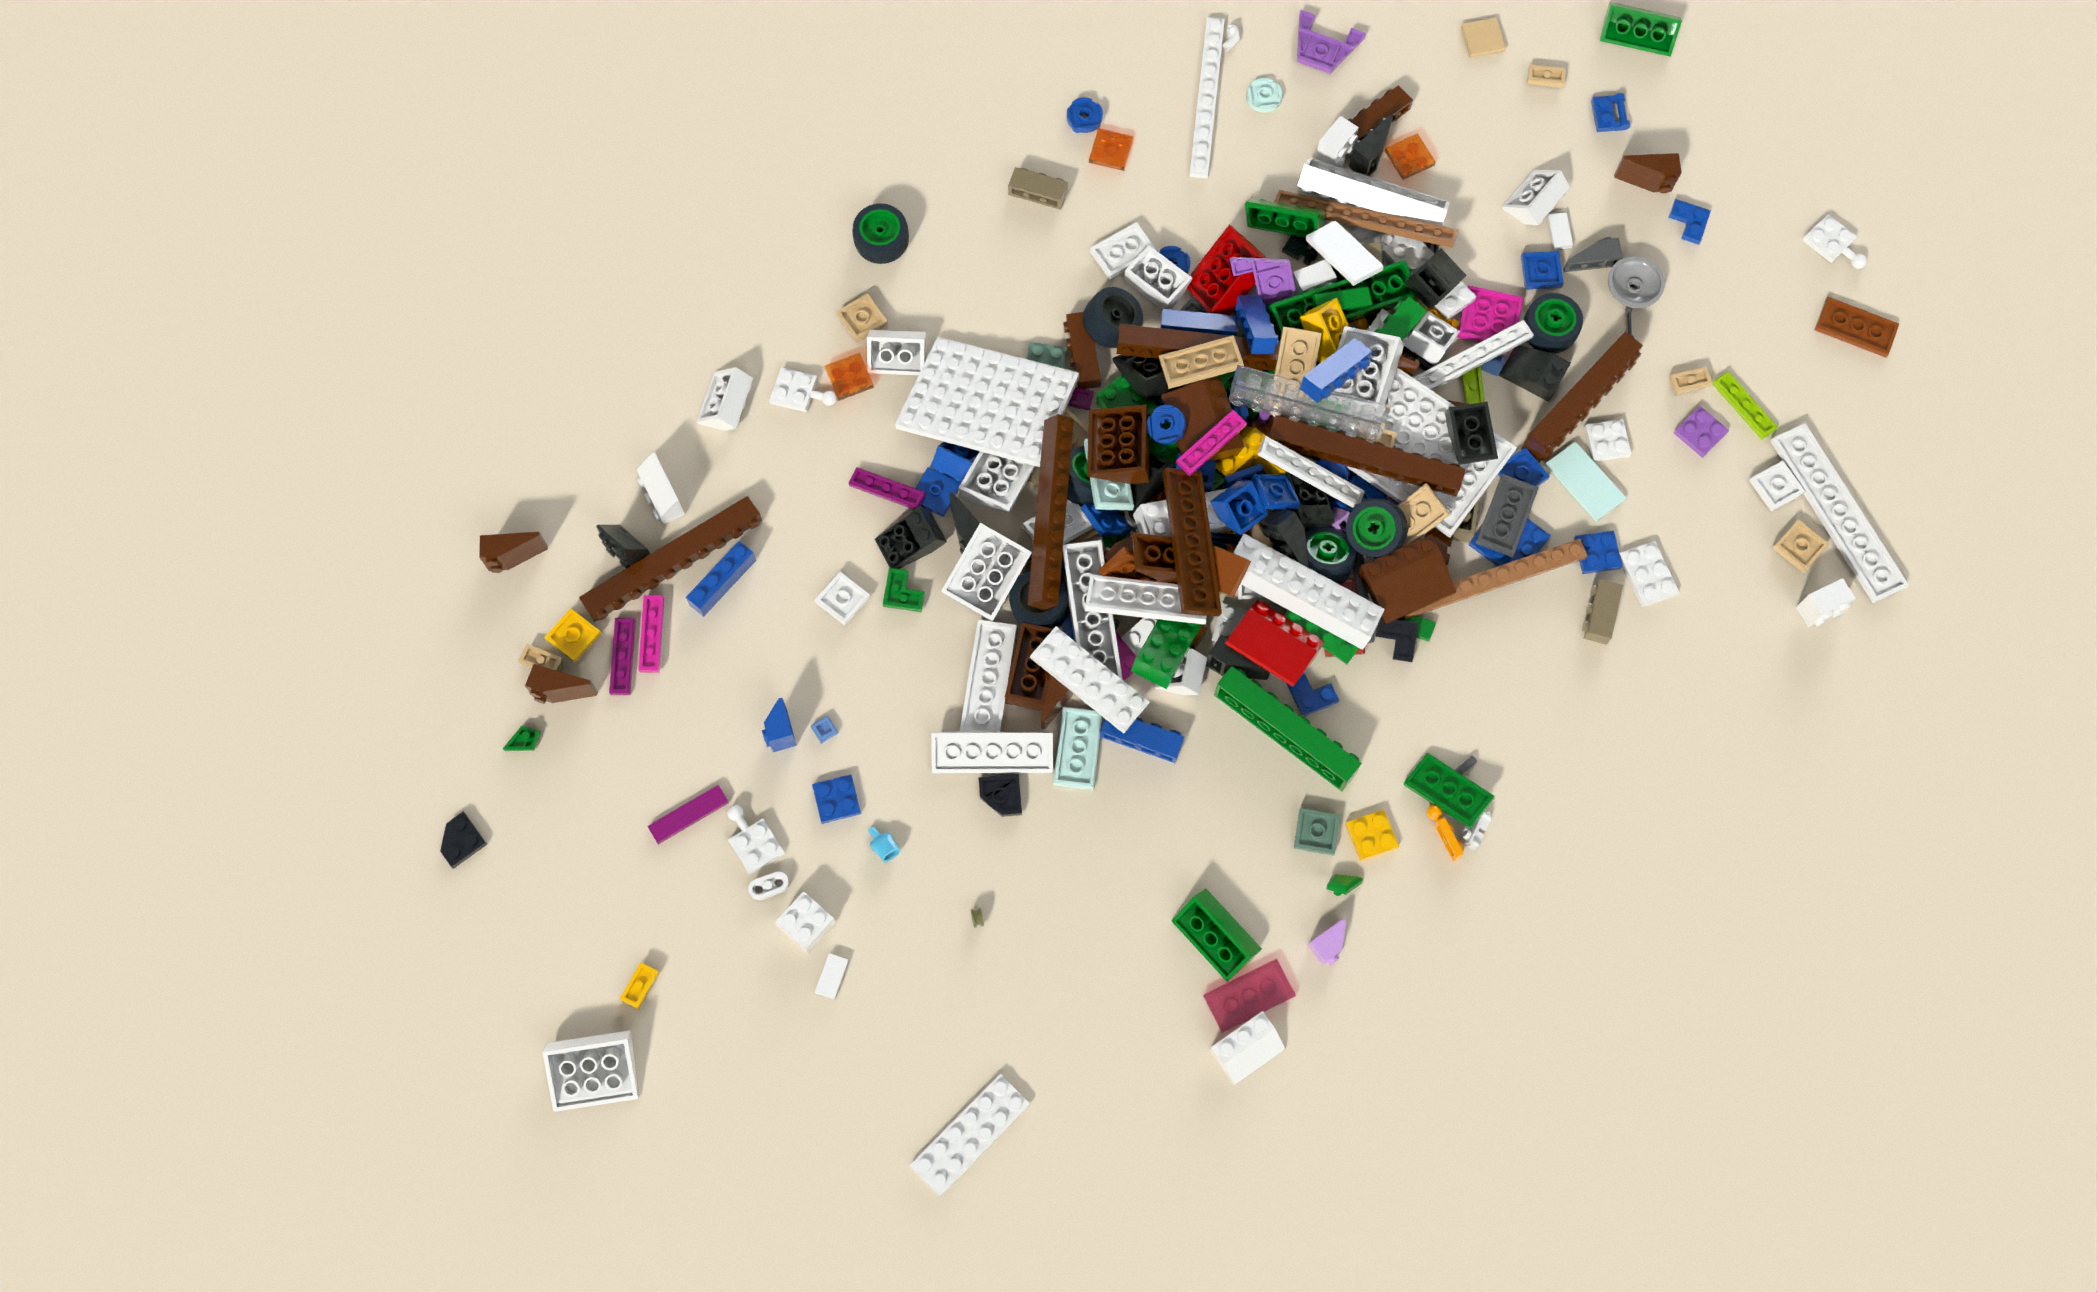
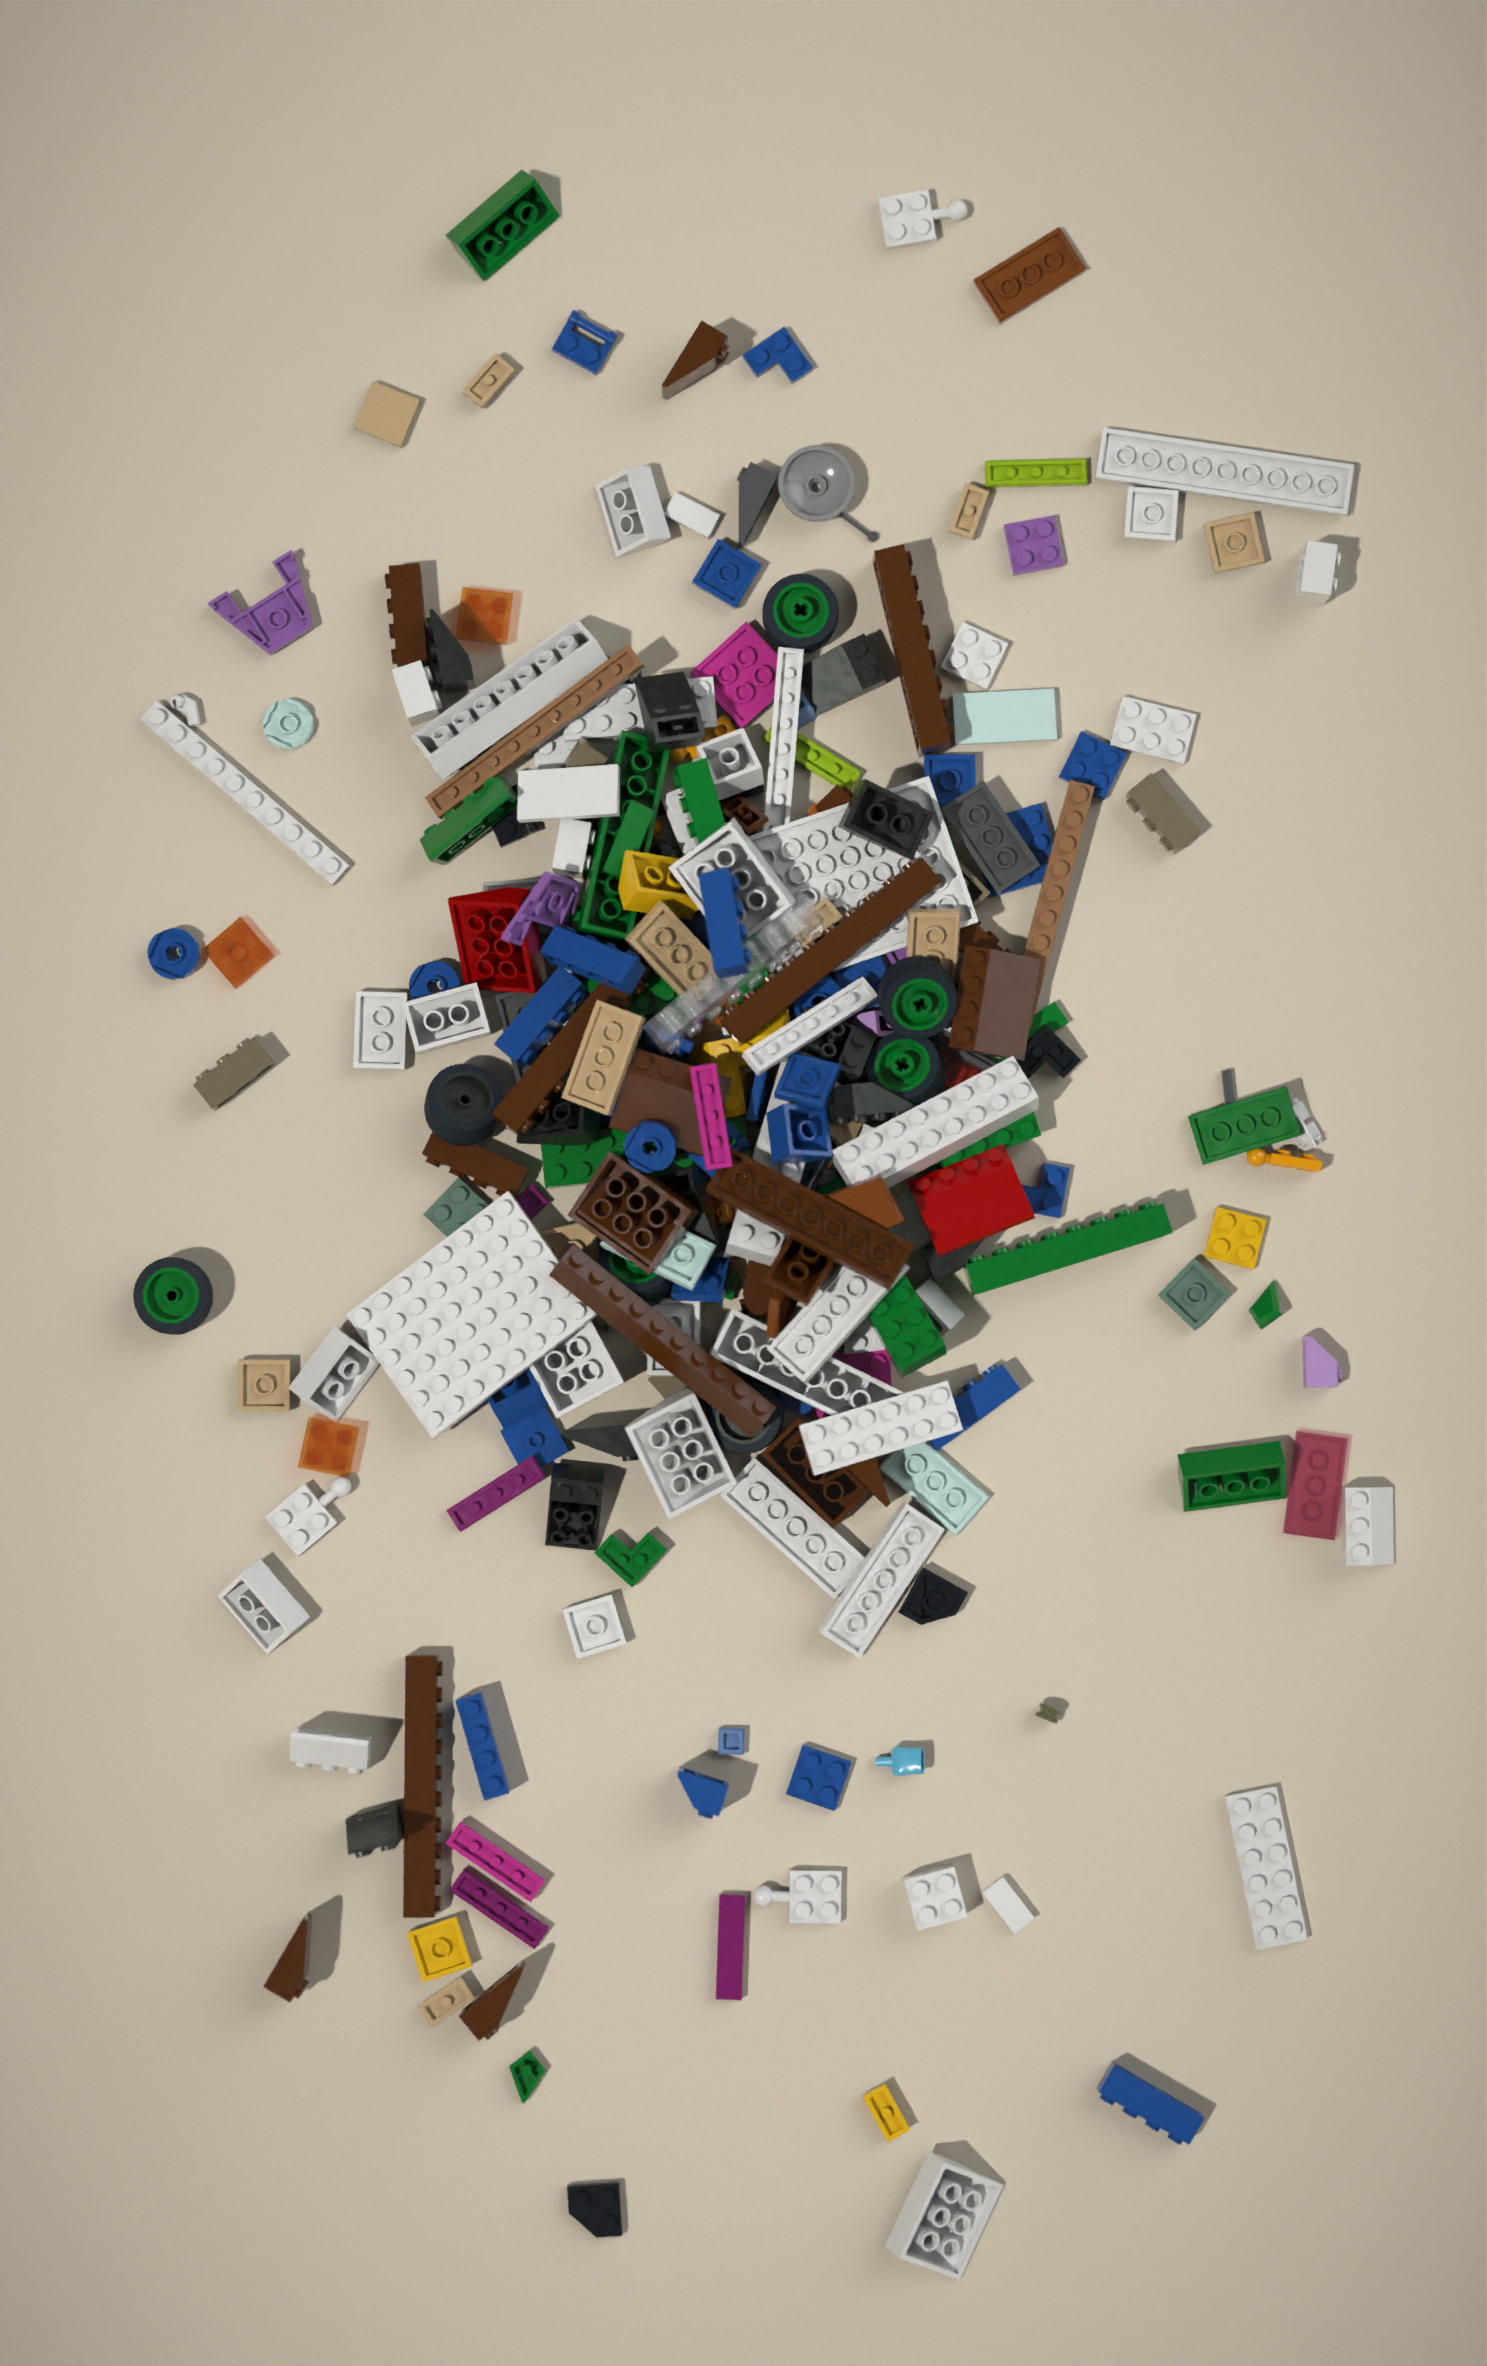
camera: 60 degrees left, 15 degrees up
(756, 1161) = (1150, 2103): none -> blue brick
(768, 884) = (867, 1910): white plate -> none

